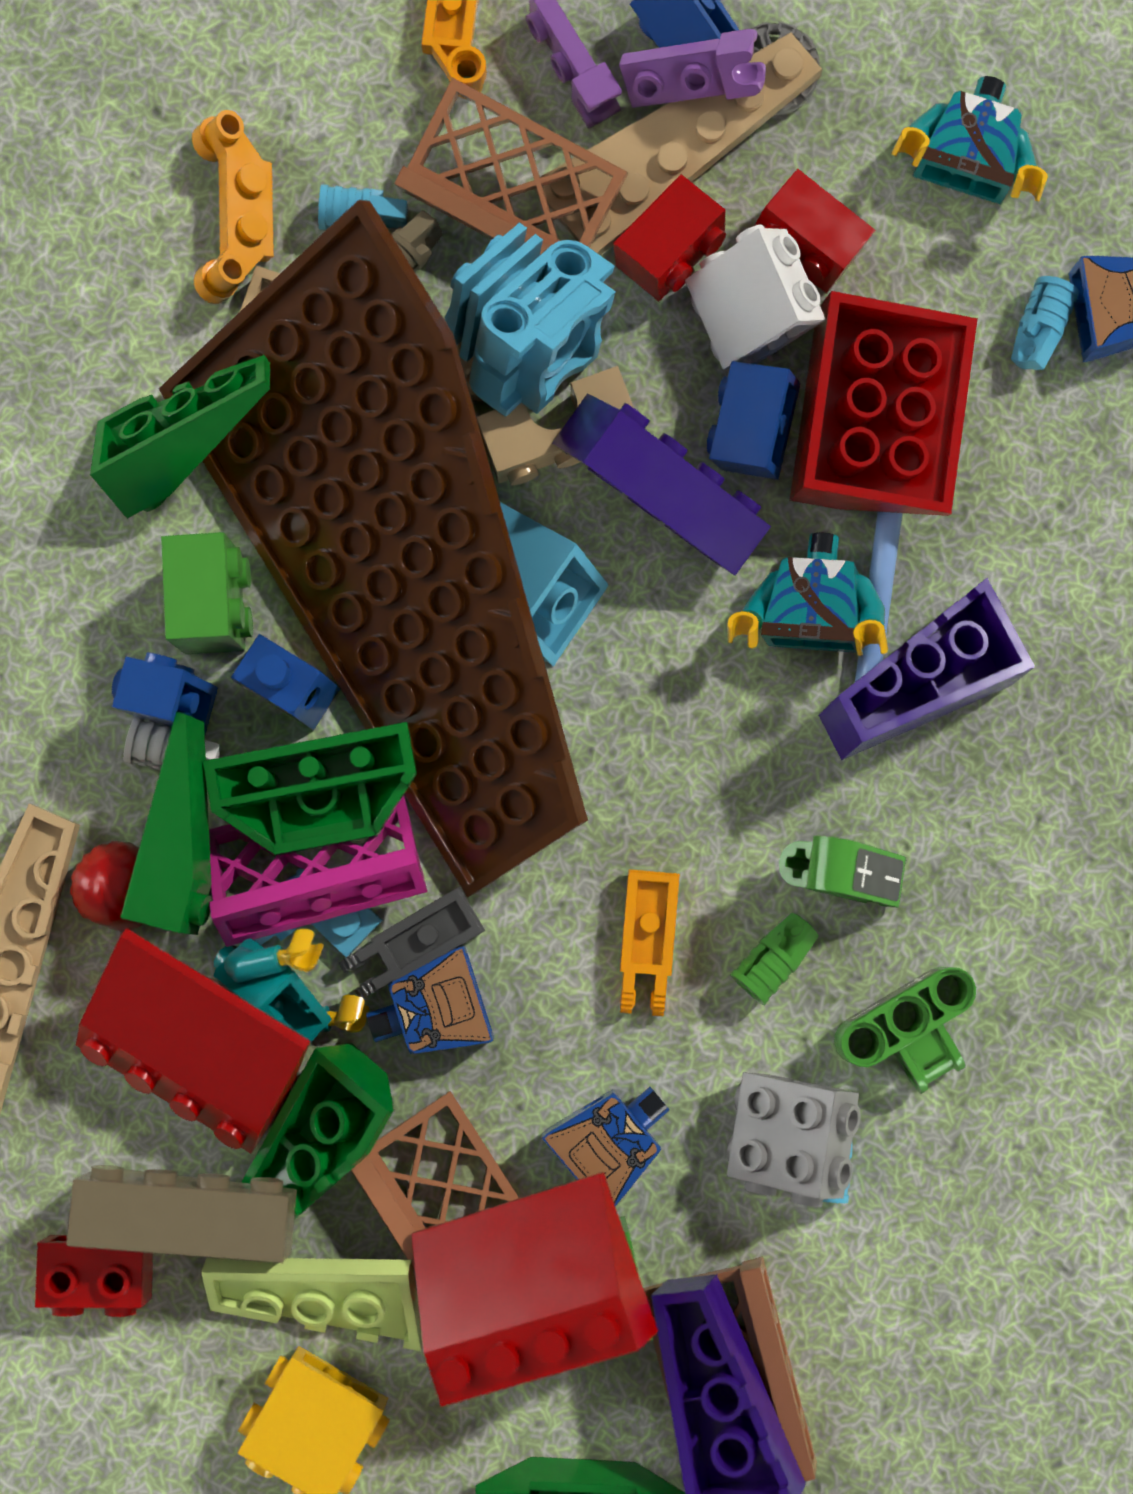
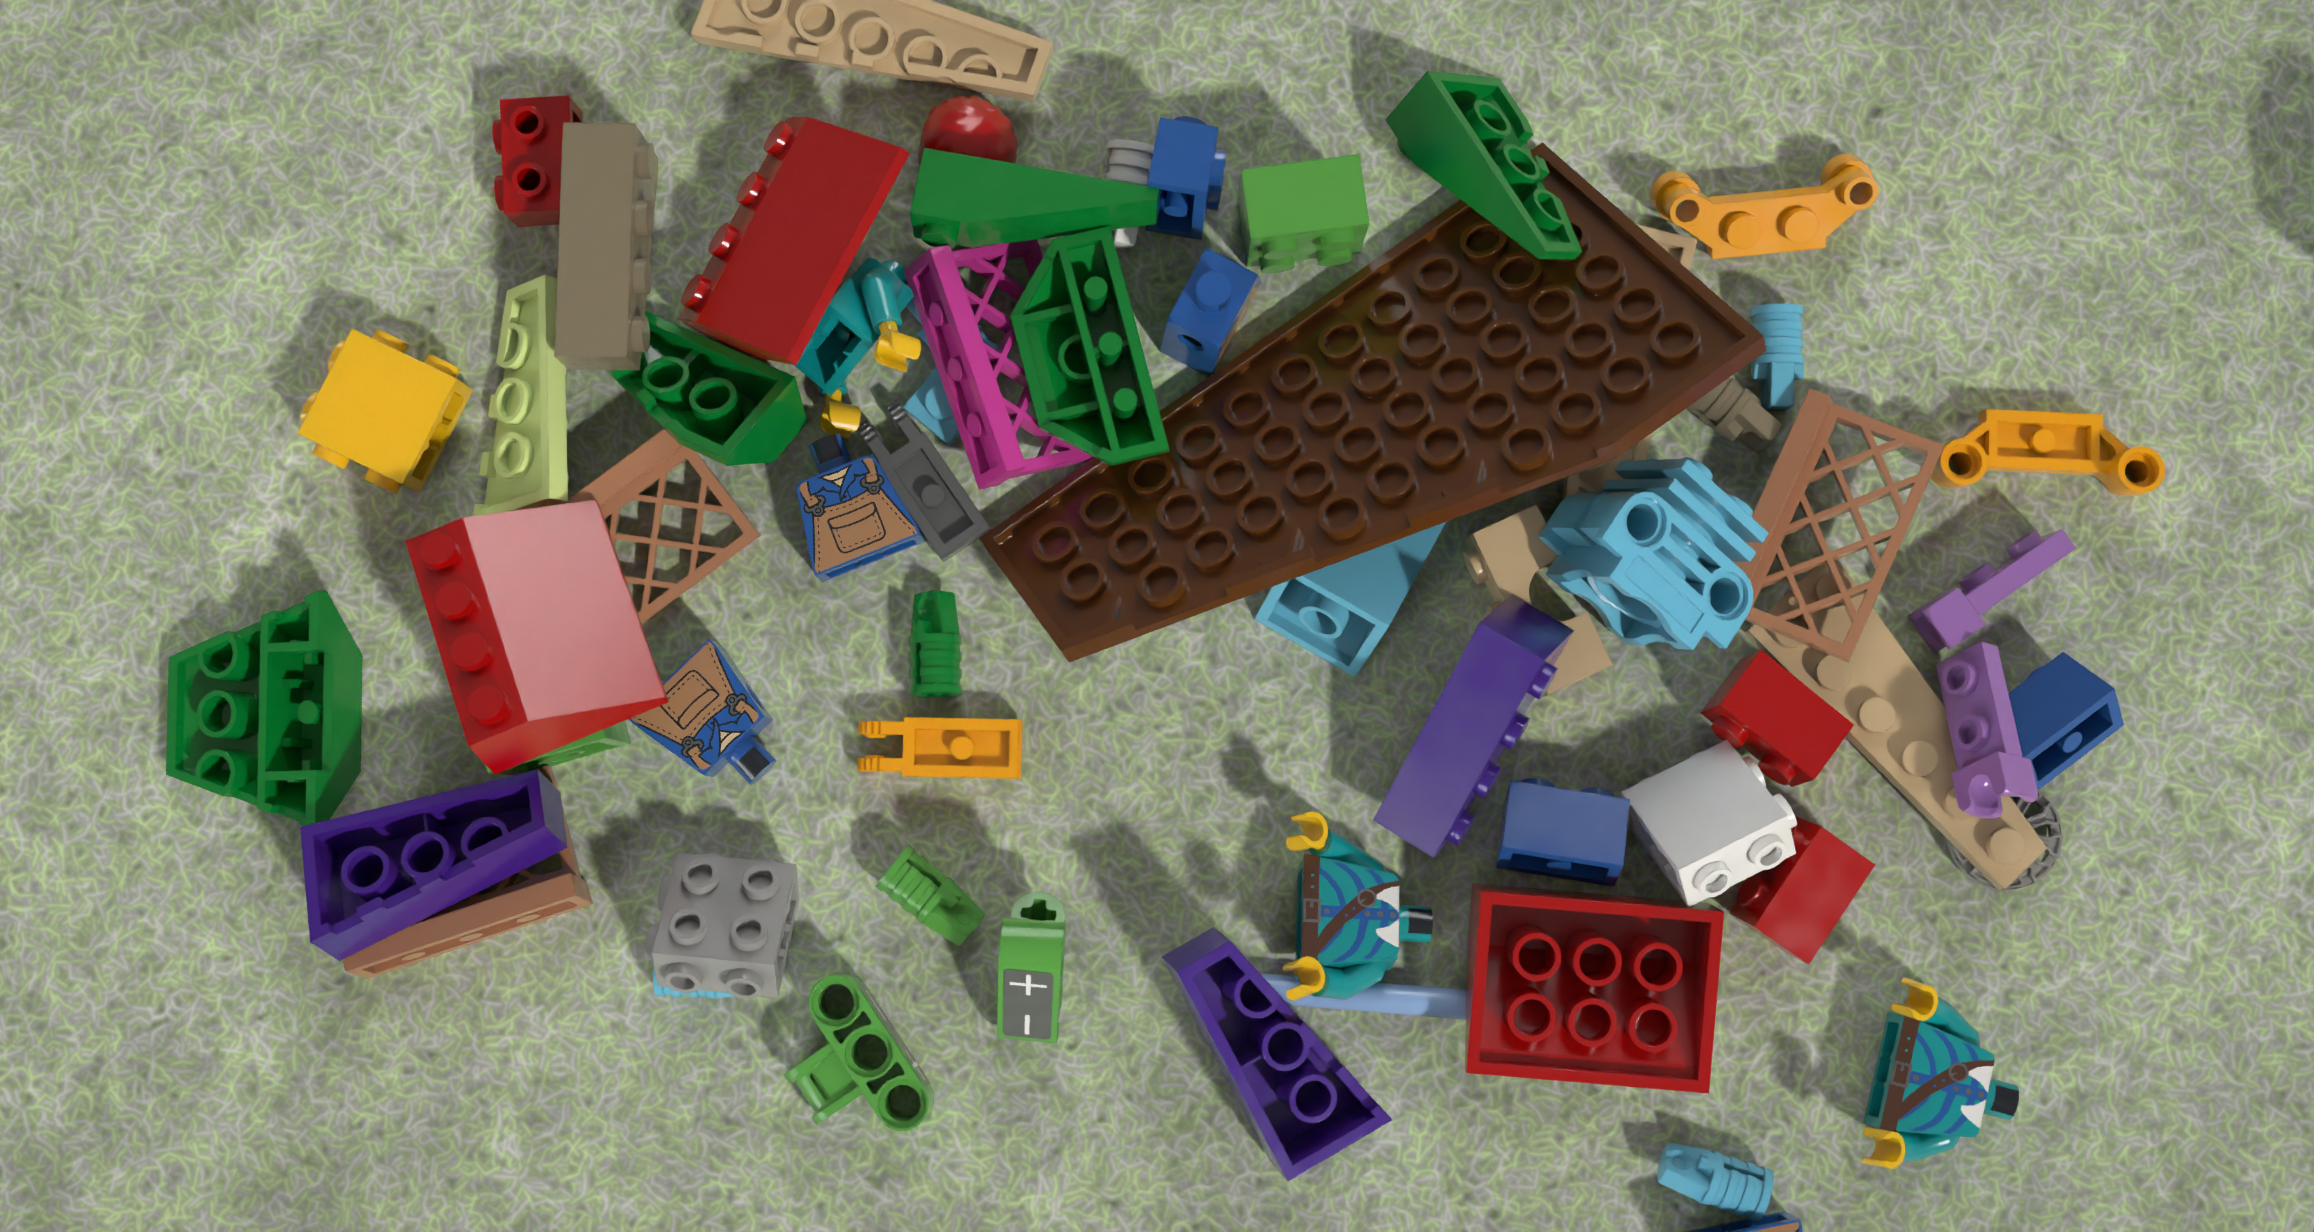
camera: 90 degrees right, 0 degrees up
(558, 941) = (935, 646): none -> green hinge

